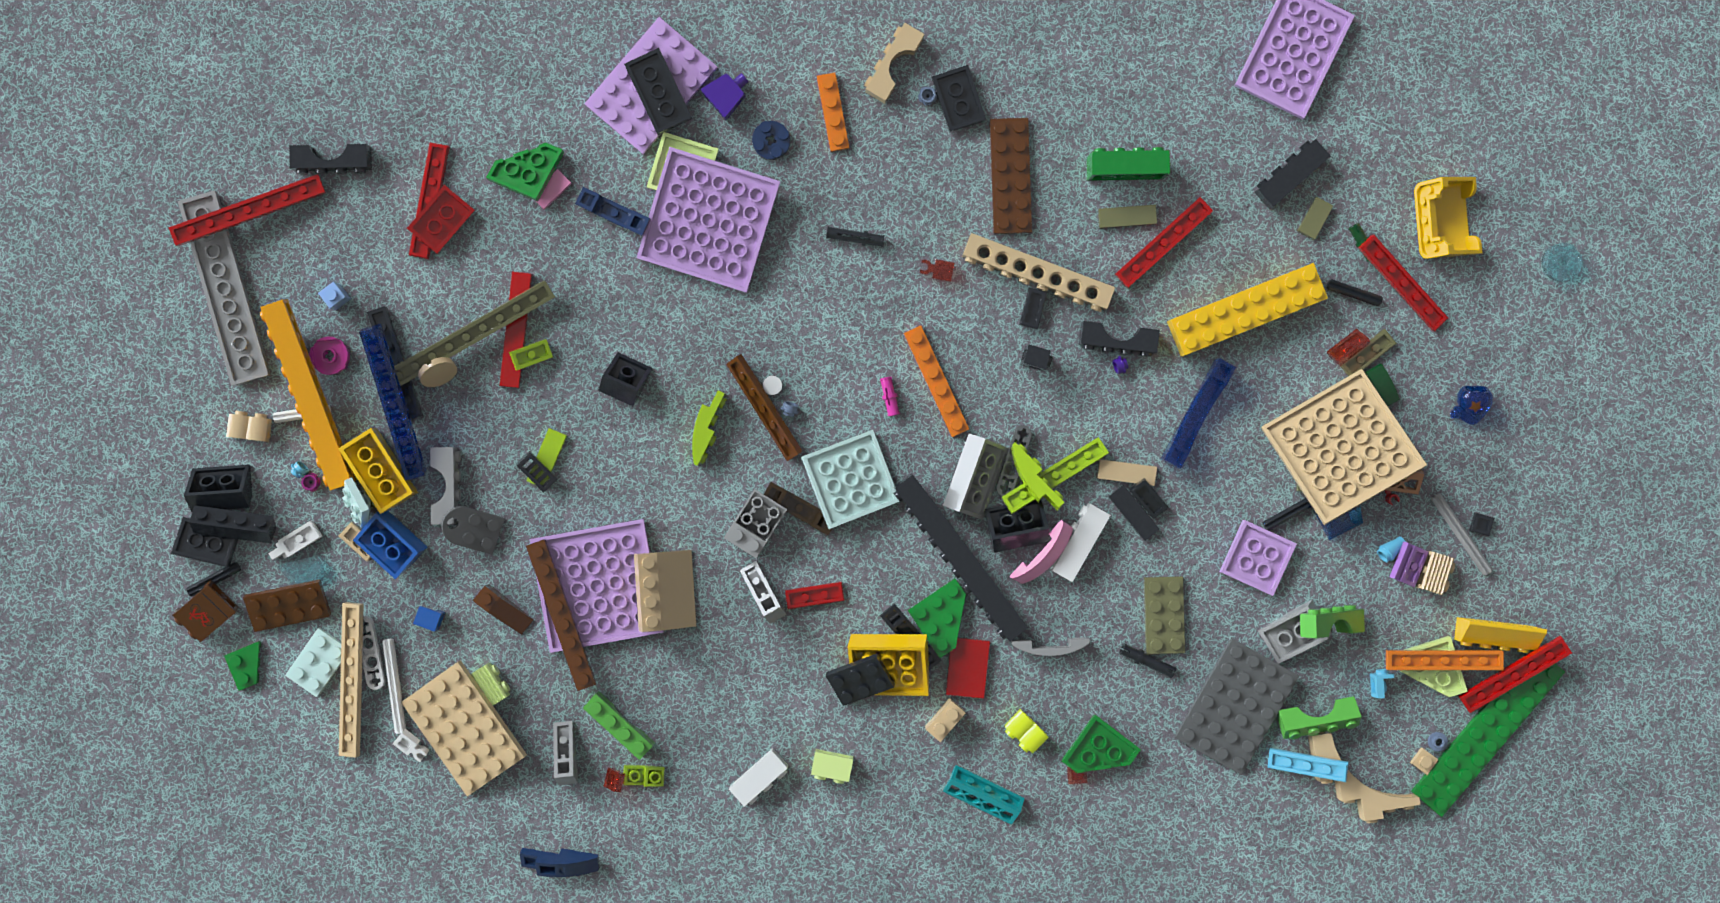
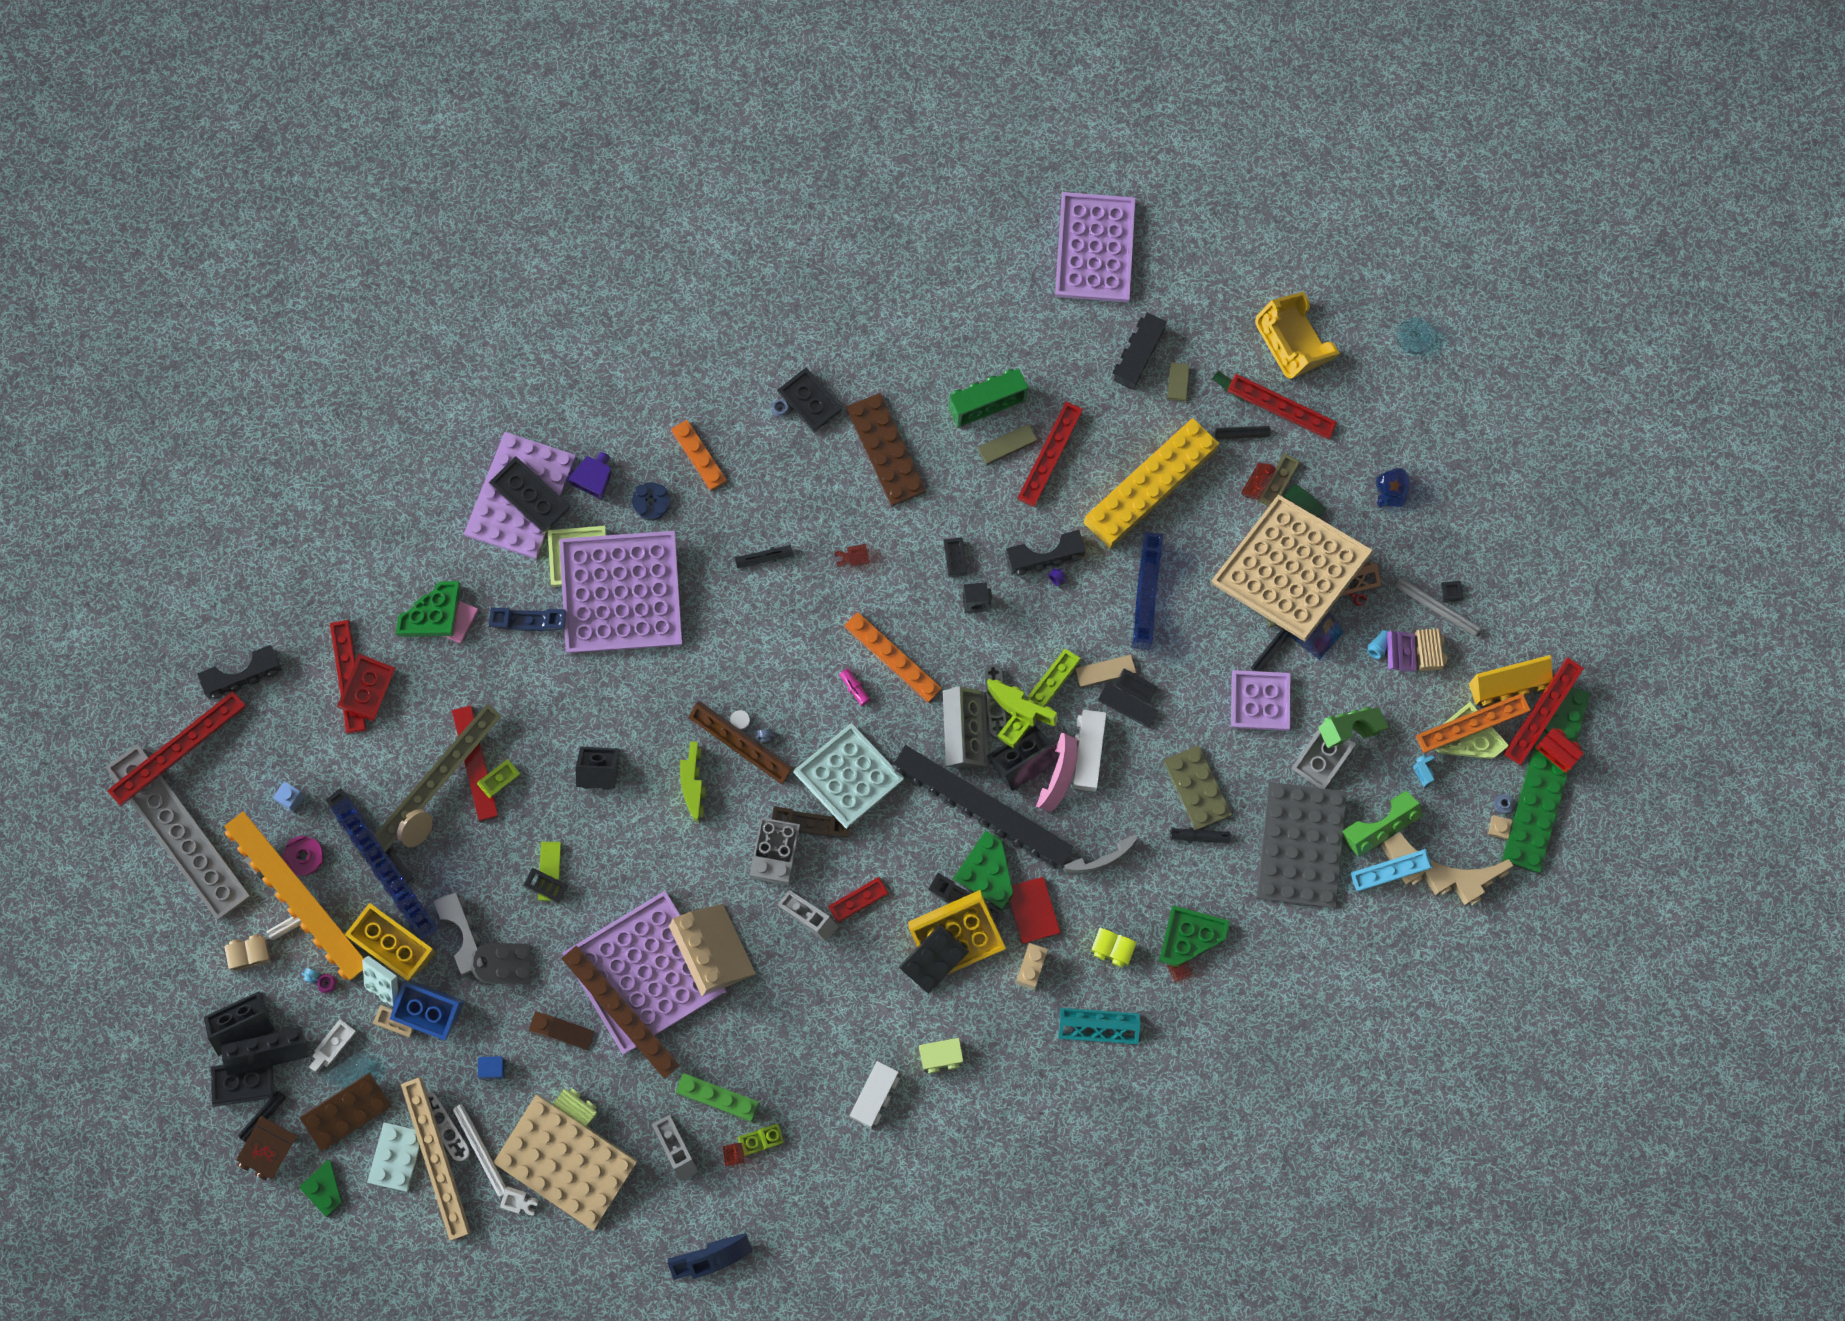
camera: 25 degrees left, 15 degrees down
(906, 42) = (741, 369): tan arch -> none
(1103, 291) = (936, 517): tan brick -> none
(1513, 716) = (1560, 749): none -> red brick

